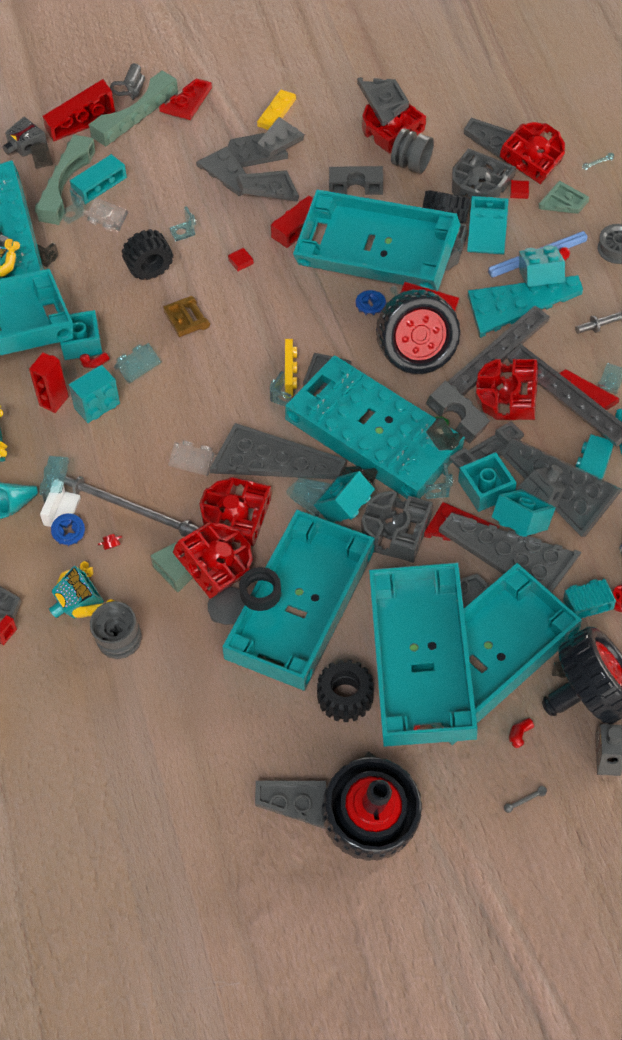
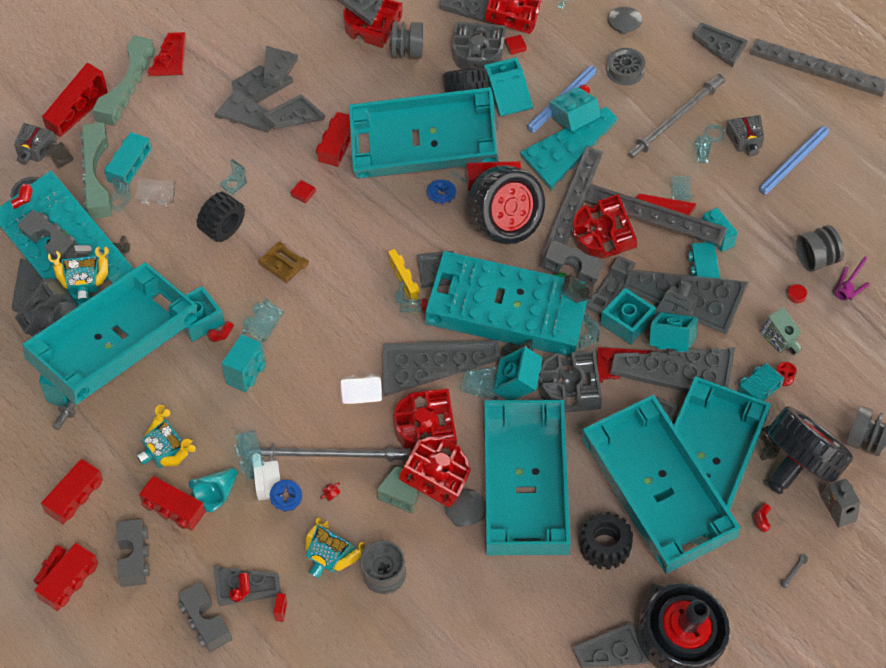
camera: 25 degrees left, 0 degrees up
(49, 382) = (198, 367): red brick -> none
(133, 81) = (109, 54): dark grey piece -> none
(258, 574) = (494, 467): black tyre -> none
(277, 108) = (258, 39): yellow plate -> none
(367, 176) = (380, 77): dark grey arch -> none
(564, 199) = (559, 41): sand green wing -> none

